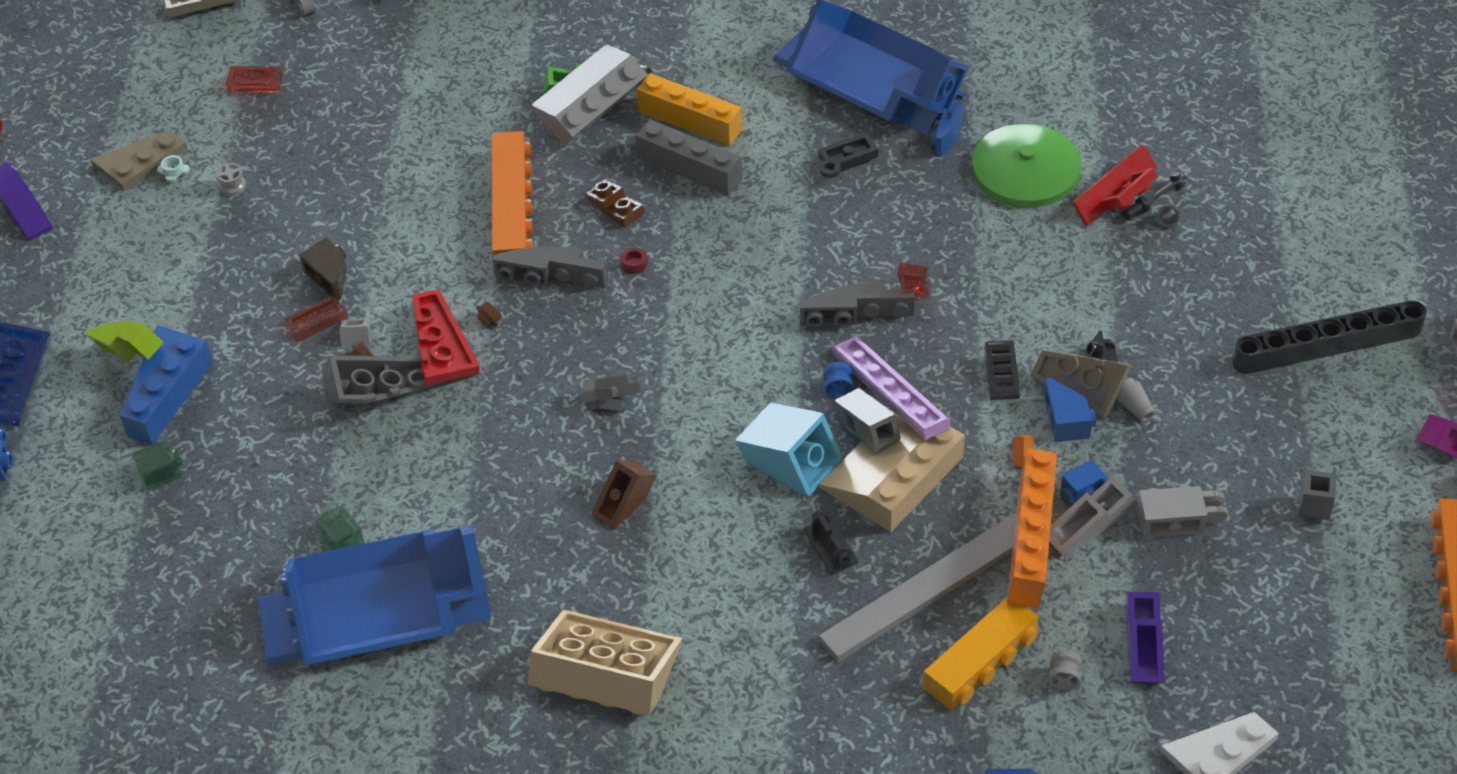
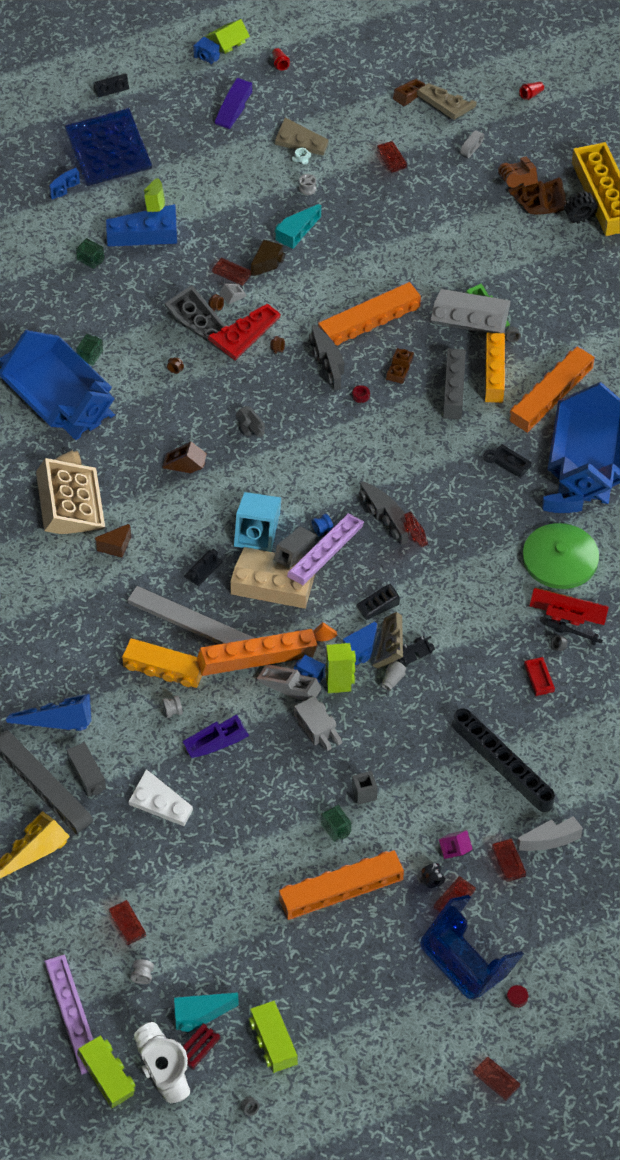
camera: 60 degrees right, 5 degrees up
(158, 24) = (407, 93): none -> reddish brown slope
(298, 219) = (295, 227): none -> teal slope
(442, 442) = (175, 365): none -> reddish brown plate
(530, 632) = (70, 457): none -> tan cone
(727, 631) = (114, 542): none -> reddish brown slope
(760, 72) = (551, 389): none -> orange brick
(1116, 436) = (340, 667): none -> lime brick
(1206, 256) = (539, 676): none -> red tile
(1358, 551) = (336, 823): none -> clear green brick

